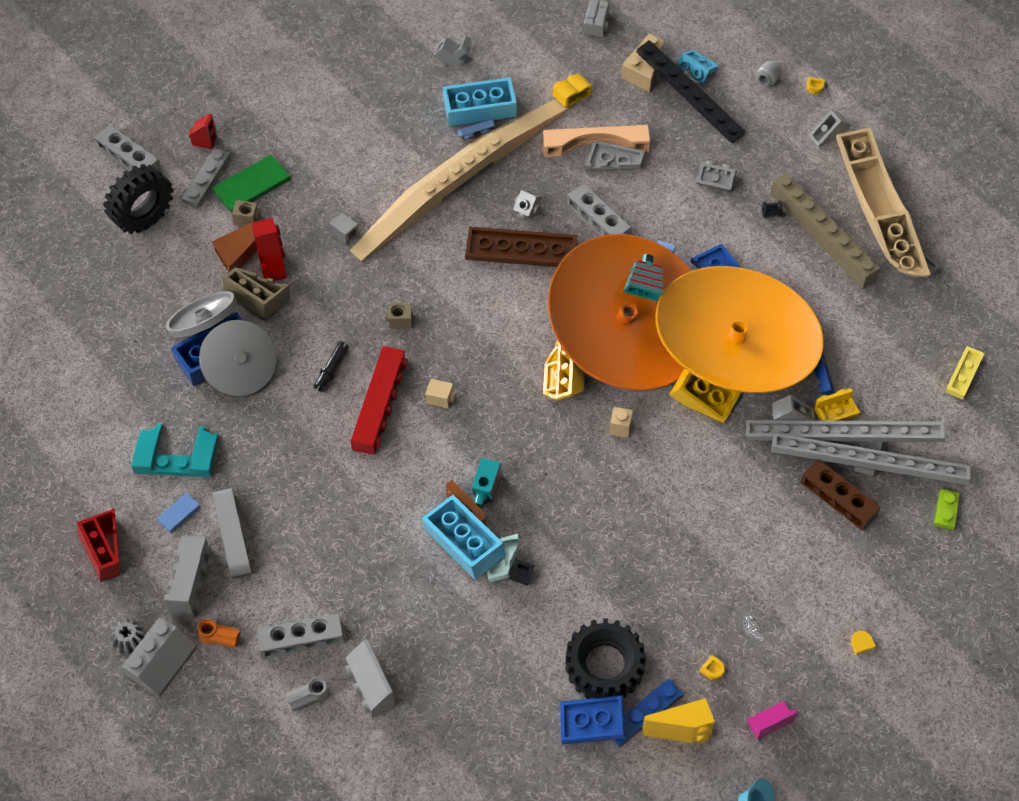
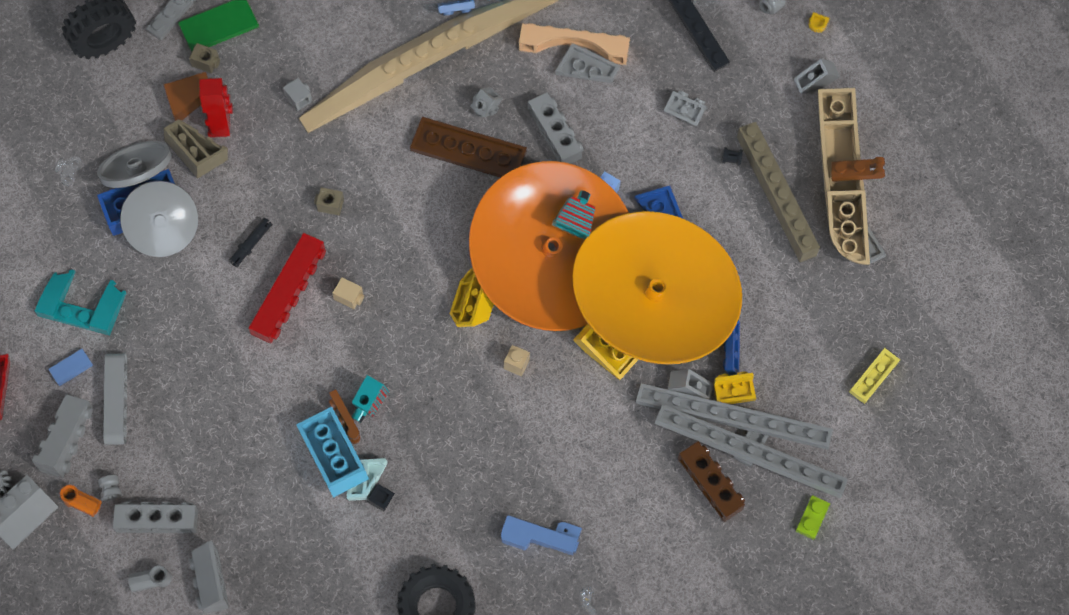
camera: 10 degrees right, 10 degrees up
(246, 616) = (109, 487): none -> light grey wheel
(669, 578) = (522, 533): none -> medium blue piece
(895, 194) = (858, 169): none -> dark orange plate

